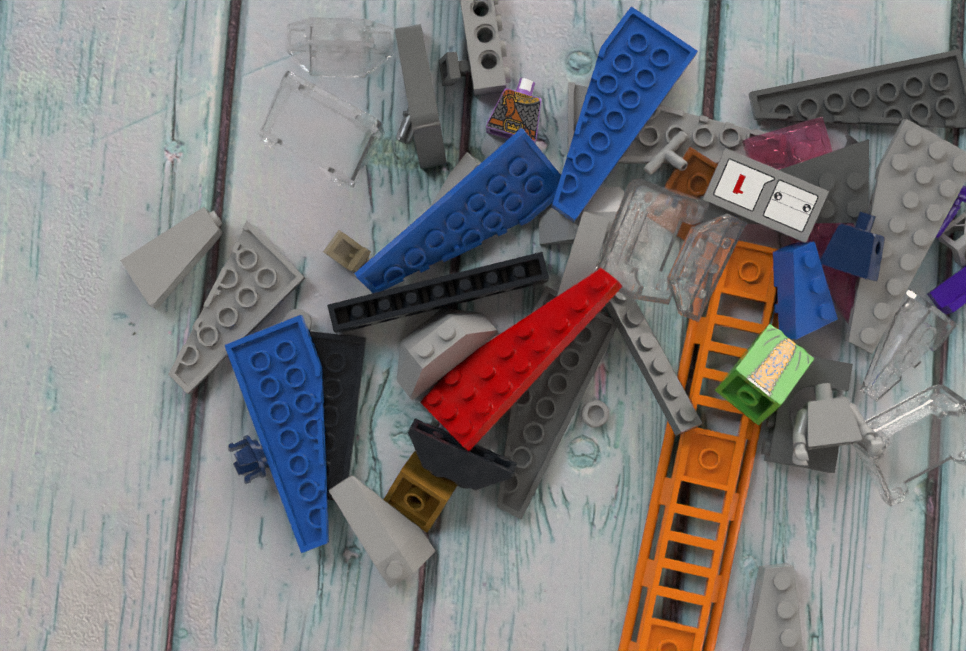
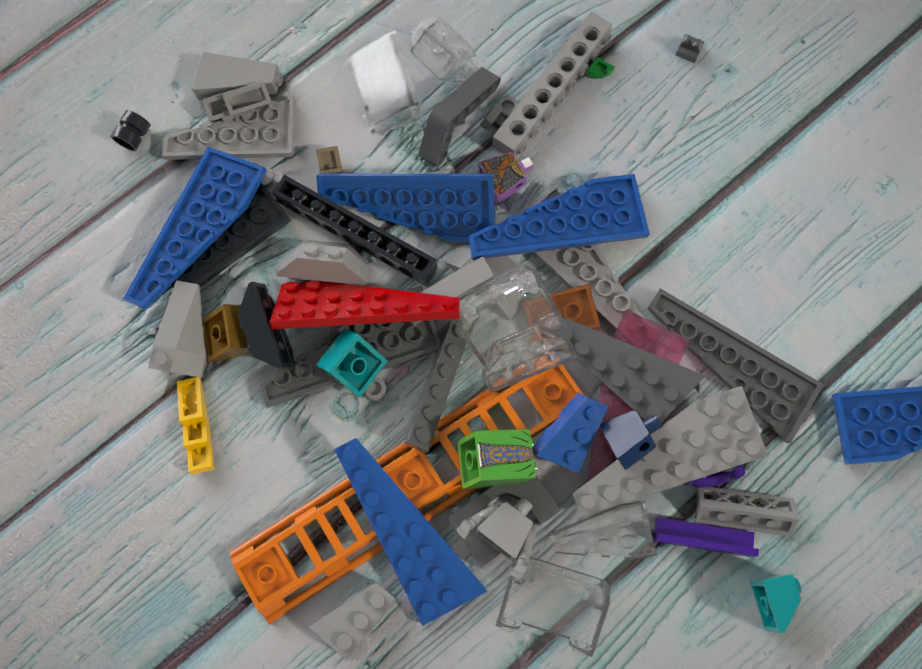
camera: 50 degrees right, 10 degrees down
(131, 399) = (130, 130): none -> black wheel
(202, 277) = (236, 101): none -> light grey slope
(249, 459) = (155, 220): dark blue piece -> none
(453, 43) = (509, 105): none -> light grey tile
(476, 594) = (195, 425): none -> yellow slope
(559, 411) = (352, 362): none -> teal slope
(668, 154) = (571, 277): light grey piece -> none
(765, 195) = (604, 350): tile -> none
(776, 512) = (422, 560): none -> blue wing

